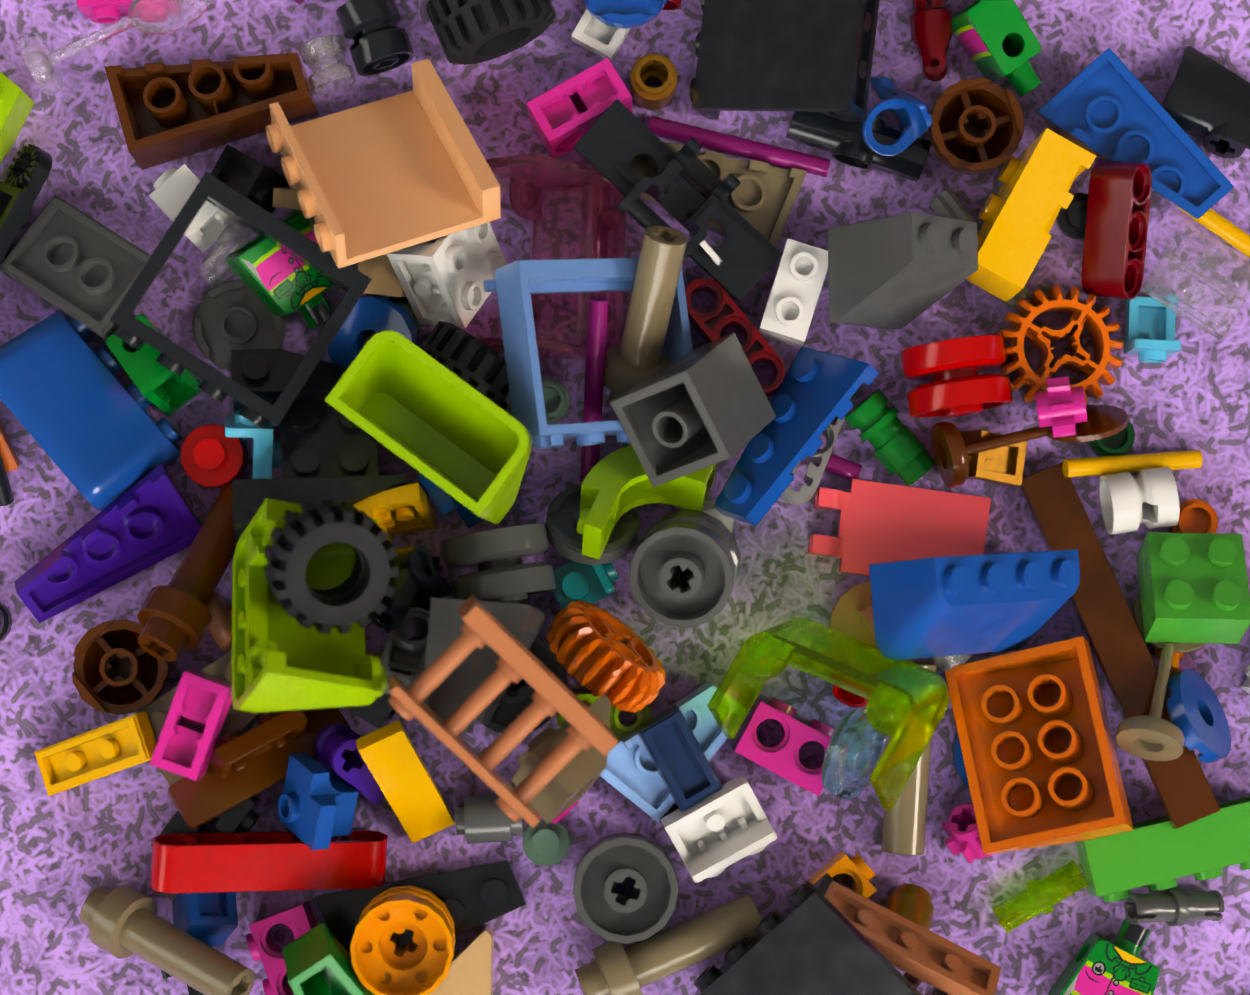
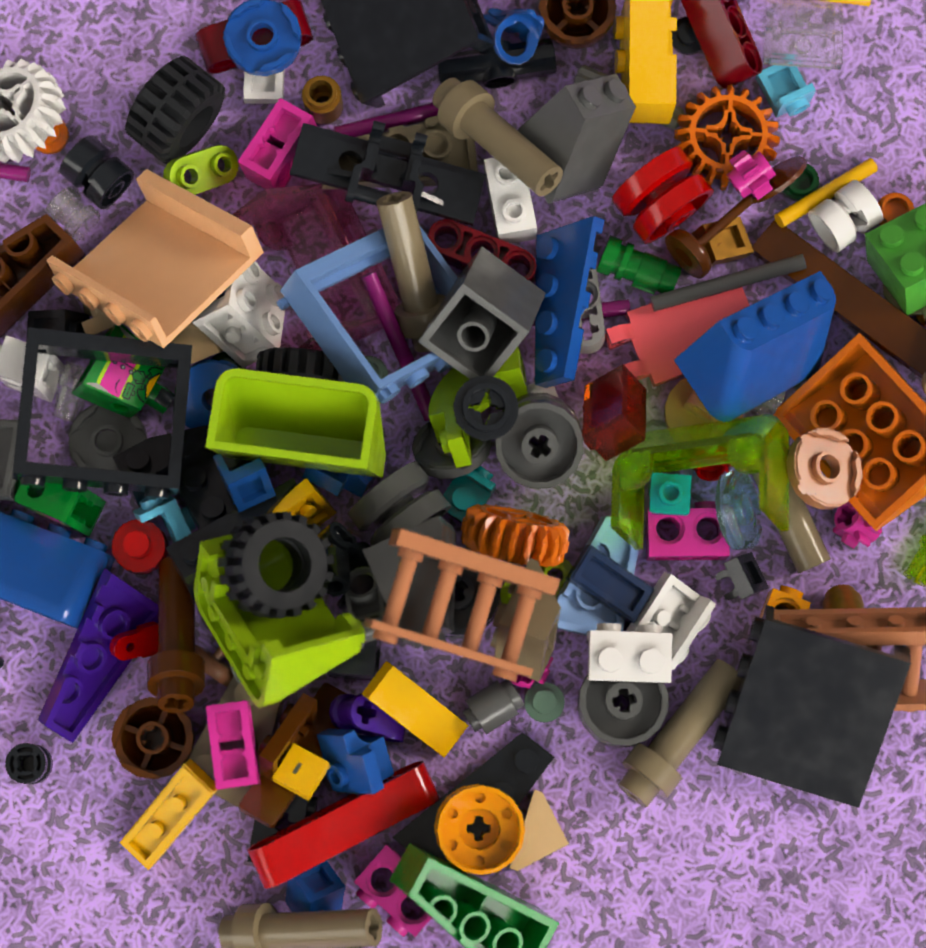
camera: 20 degrees left, 5 degrees down
(163, 557) = (142, 642): none -> red piece
(251, 786) = (301, 772): none -> yellow tile
(351, 456) = (246, 484): none -> blue panel
(488, 89) = (203, 169): none -> lime plate
(657, 847) = (629, 655): none -> white bracket
(665, 505) = (499, 396): none -> black gear
(779, 583) = (614, 413): none -> clear red brick
(791, 699) = (669, 494): none -> teal bracket
(799, 179) = (469, 112): none -> dark tan piece
(824, 823) = (745, 576): none -> black tile
(942, 759) = (807, 477): none -> tile
(975, 505) = (728, 282): none -> dark grey bar

